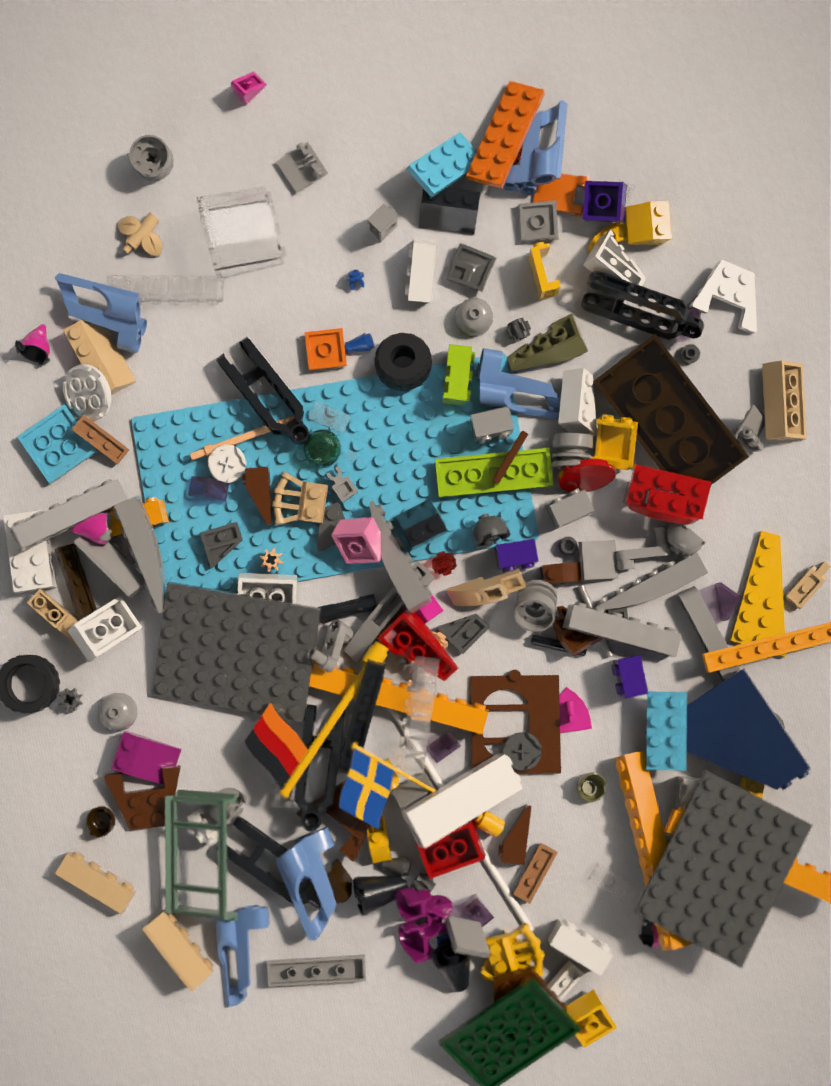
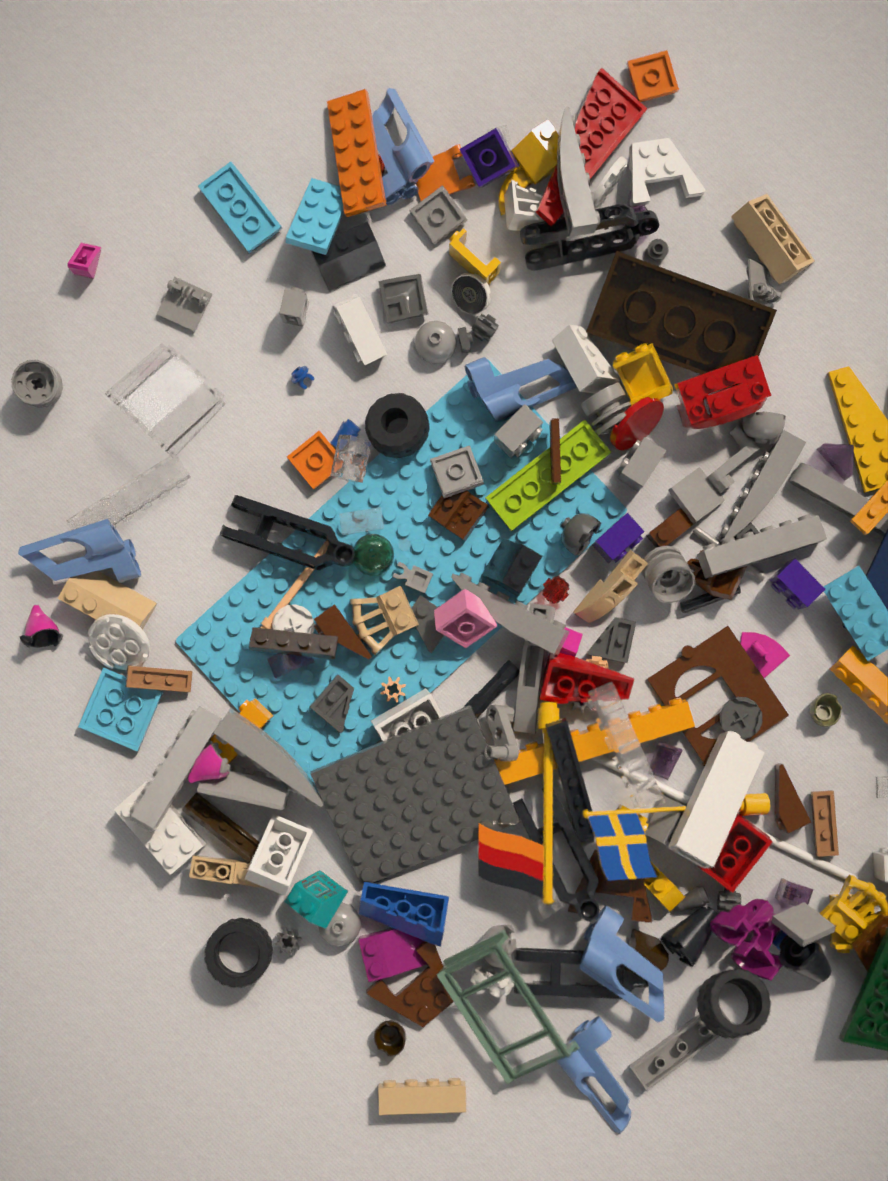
camera: 30 degrees left, 0 degrees up
(112, 680) = (316, 898): none -> teal slope
(141, 234) = (73, 462): tan plant -> none
(174, 733) = (406, 910): none -> blue wedge
(179, 950) = (541, 1110): tan slope -> none
(218, 476) = (293, 643): none -> dark brown plate
(342, 365) = (348, 448): none -> clear brick
(391, 120) = (240, 207): none -> medium azure plate
(398, 963) = (756, 996): none -> black tyre
(408, 456) = (459, 513): none -> reddish brown slope
(426, 425) = (456, 471): none -> light grey tile
(458, 375) = (456, 405): lime wedge -> none
(498, 329) = (465, 339): none -> dark grey plate
(524, 296) = (471, 293): none -> black tile
(556, 345) = (529, 319): olive wedge -> none
(574, 546) = (659, 493): dark grey plate -> none
(655, 260) = (574, 181): none -> slope
(681, 279) = (609, 181): none -> white tile
(704, 232) = (601, 125): none -> red wing
(772, 218) = (652, 76): none -> orange plate

